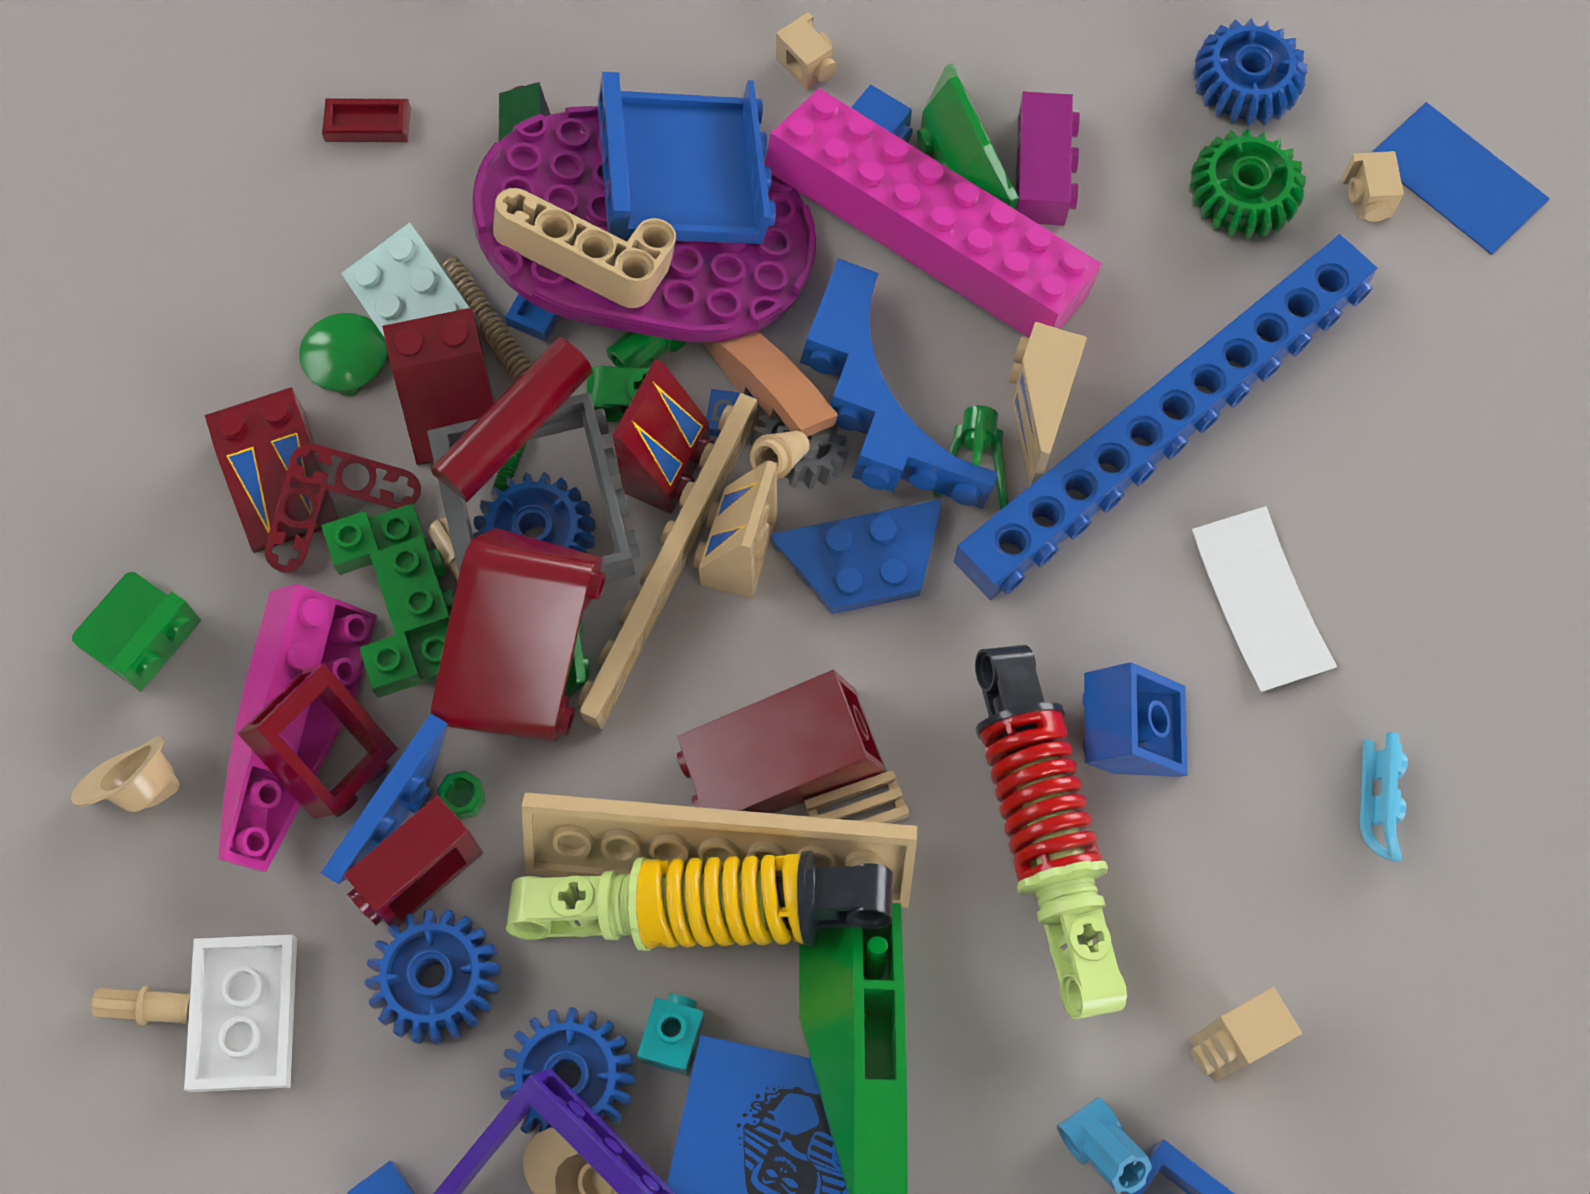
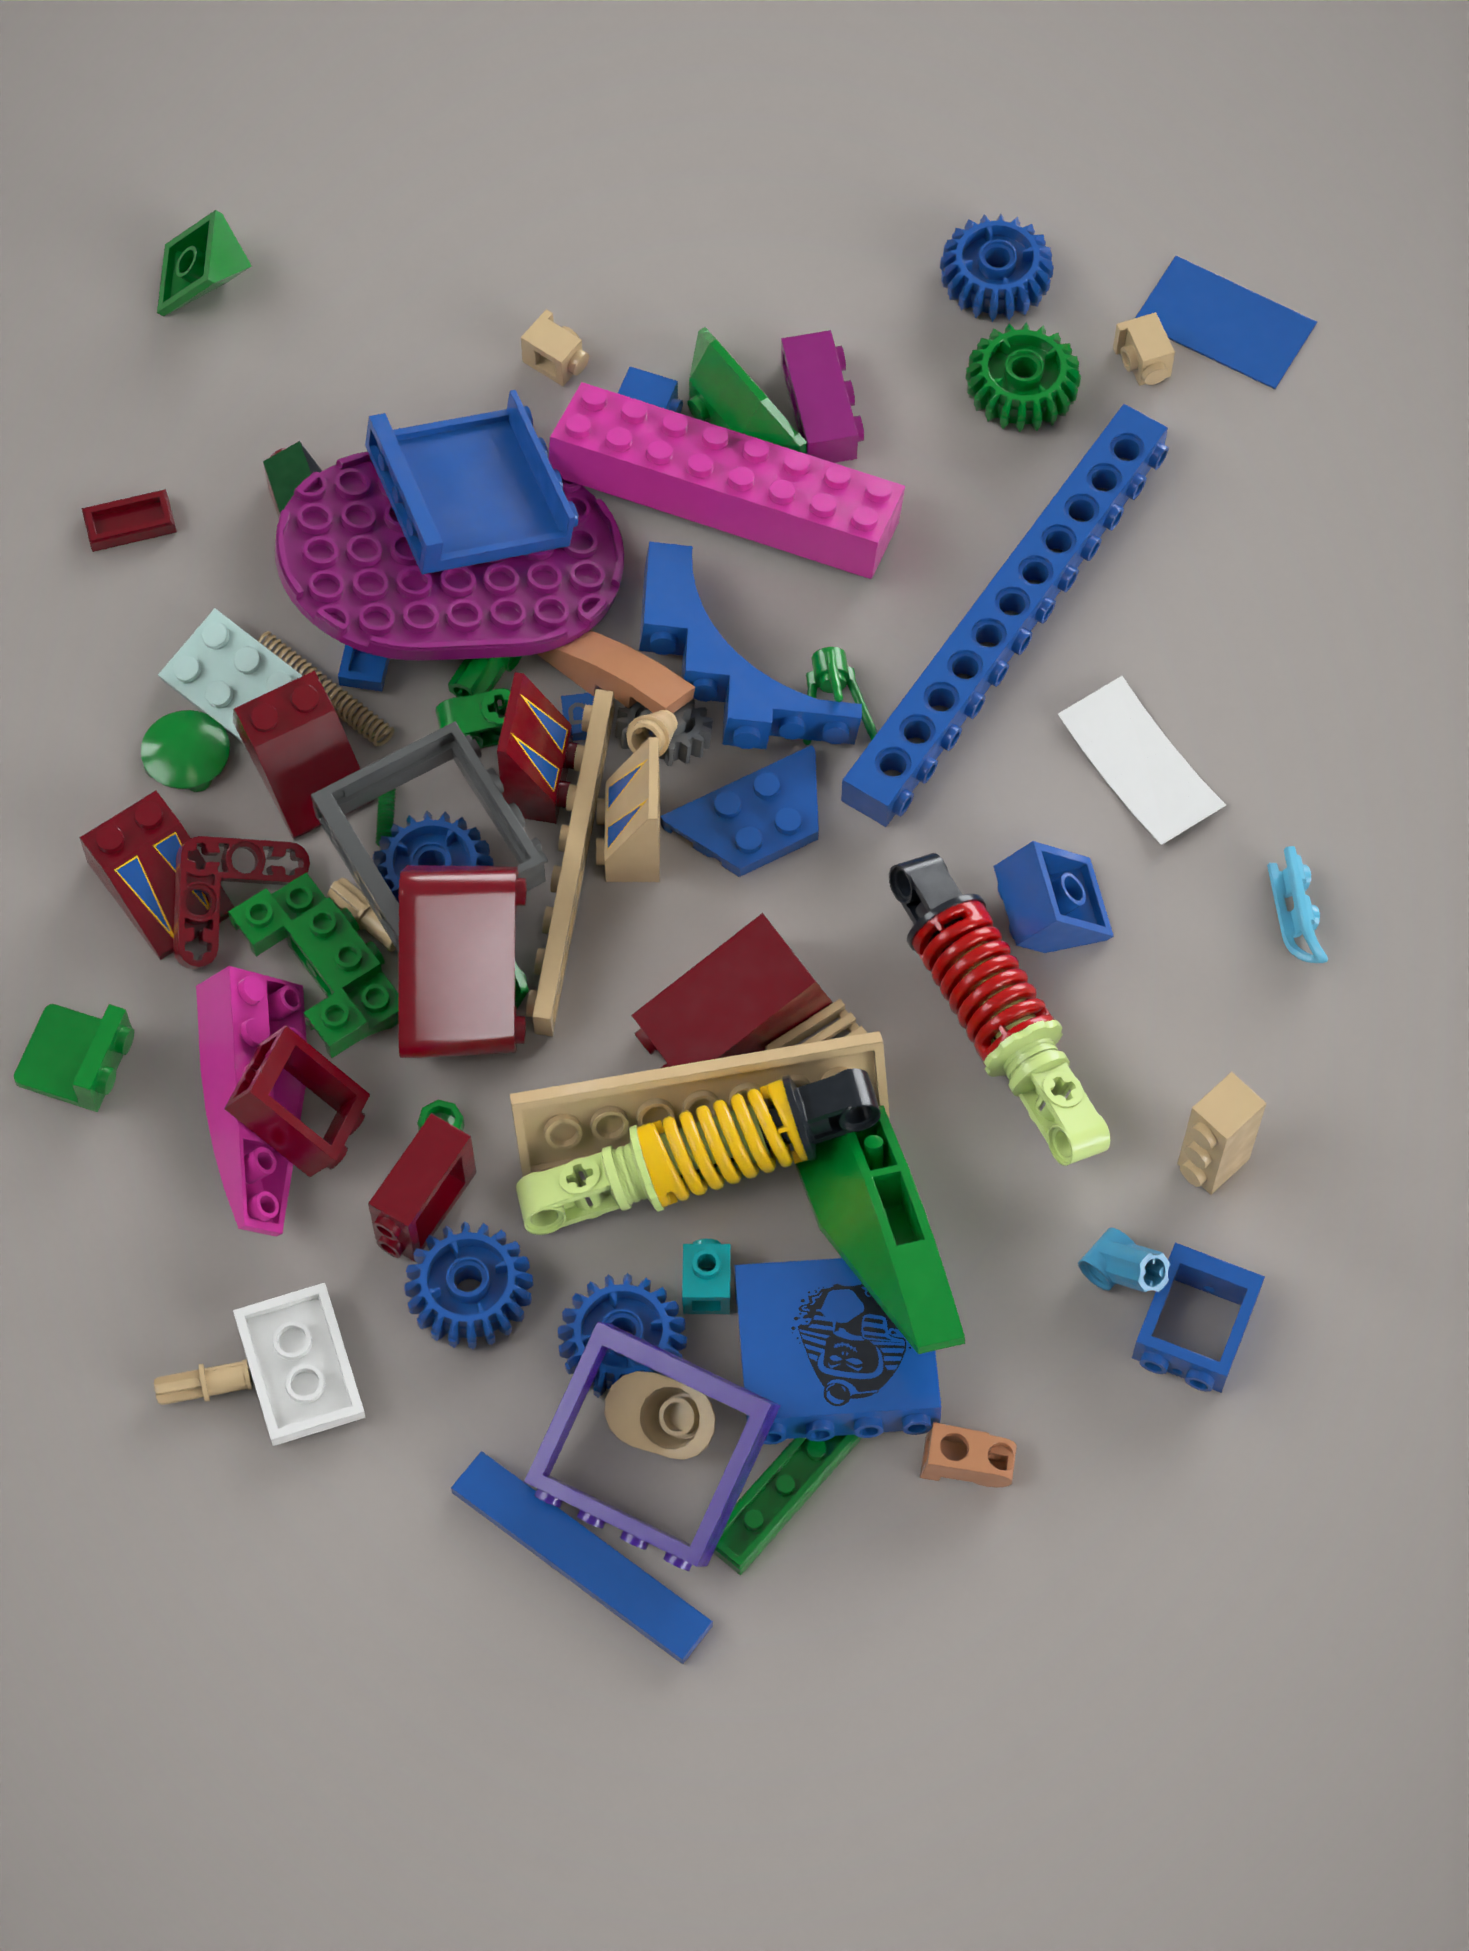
camera: 15 degrees left, 5 degrees down
(130, 779) = (122, 1188): tan piece -> none
(399, 794) = (388, 1132): blue wing -> none
(512, 419) = (392, 761): dark red brick -> none
(583, 251) = (406, 591): tan beam -> none
(1043, 381) = (880, 607): tan slope -> none

